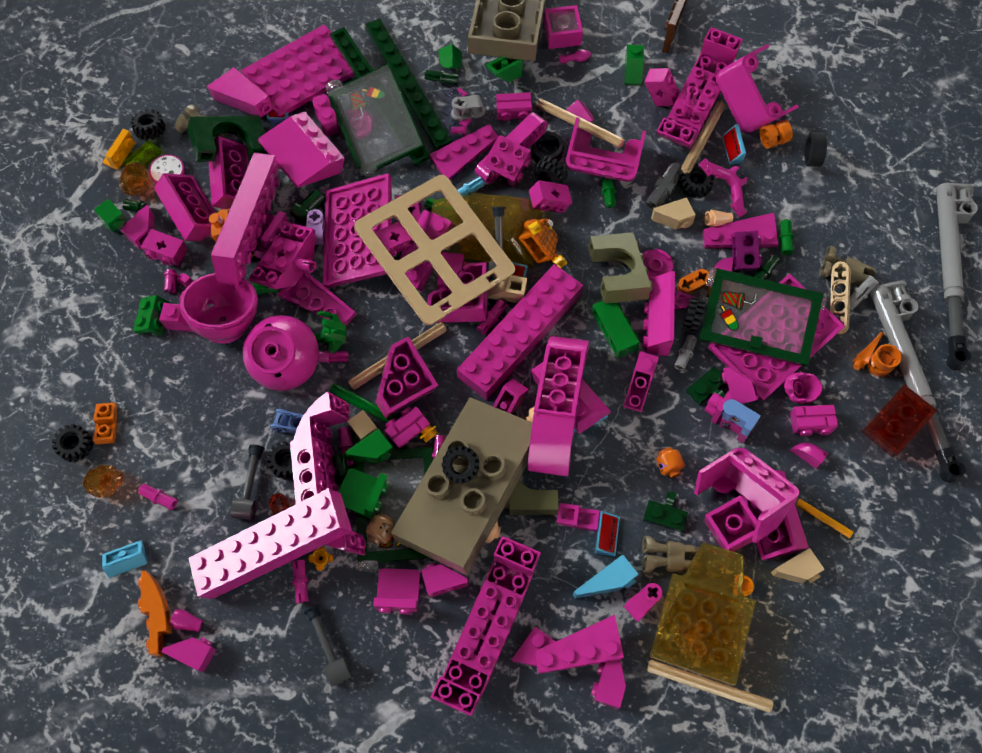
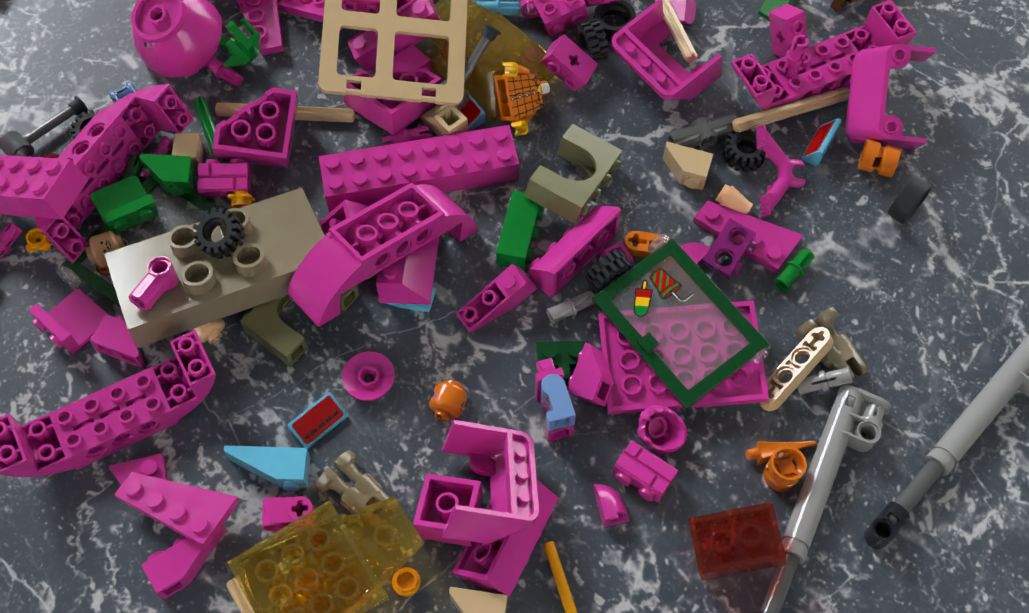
camera: 35 degrees right, 5 degrees down
(453, 527) = (160, 278): none -> dark pink piece
(578, 517) = (303, 381): dark pink slope -> none
(608, 192) = (638, 100): green axle -> none
(616, 475) = (368, 365): none -> dark pink dish
(657, 262) = (626, 197): dark pink tile -> none
(665, 514) = (396, 448): dark green plate -> none
(766, 270) = (740, 285): dark green pin -> none

